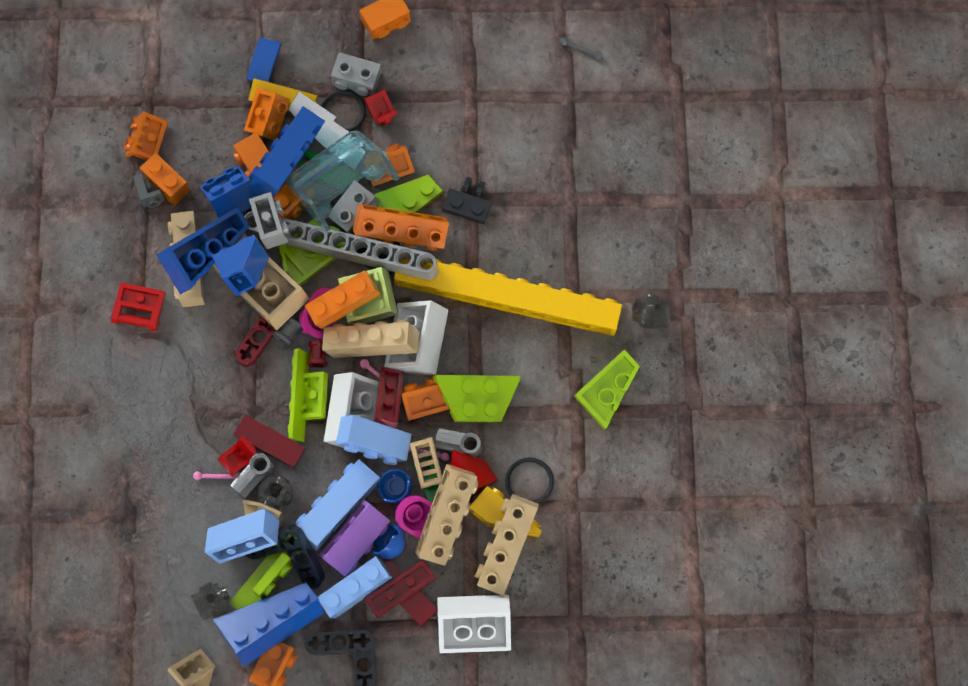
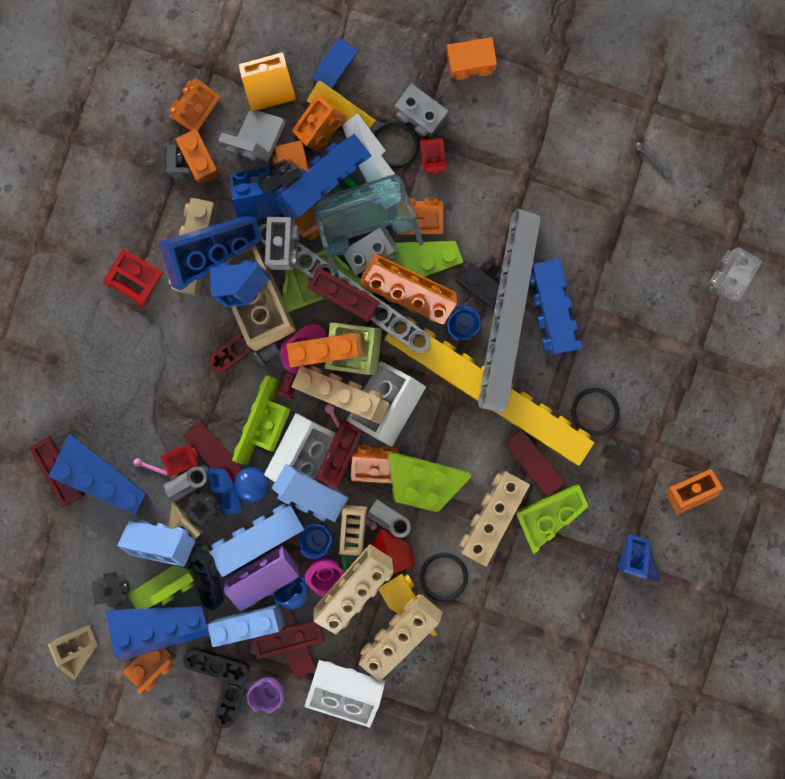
camera: 20 degrees right, 15 degrees up
(121, 511) = (45, 454): none -> dark red tile
(162, 498) = (91, 474): none -> blue wedge
(207, 95) = (267, 82): none -> light orange brick
(213, 144) = (256, 136): none -> light grey bracket
(250, 161) = (283, 174): none -> black hinge
(287, 463) = (222, 483): none -> blue slope
(314, 457) = (251, 485): none -> blue hair
(342, 247) = (343, 295): none -> dark red tile
(398, 650) = (266, 695): none -> medium lavender hair
(462, 241) = (463, 323): none -> blue hair
(499, 216) = (509, 311): none -> light grey beam
(540, 202) = (553, 308): none -> blue wedge
(556, 407) = (494, 518): none -> tan brick
(574, 346) = (534, 463): none -> dark red tile
(619, 262) = (610, 396): none -> black tyre
(692, 119) = (735, 274): none -> clear brick
(705, 400) = (638, 558): none -> blue slope
(731, 318) = (694, 491): none -> orange brick

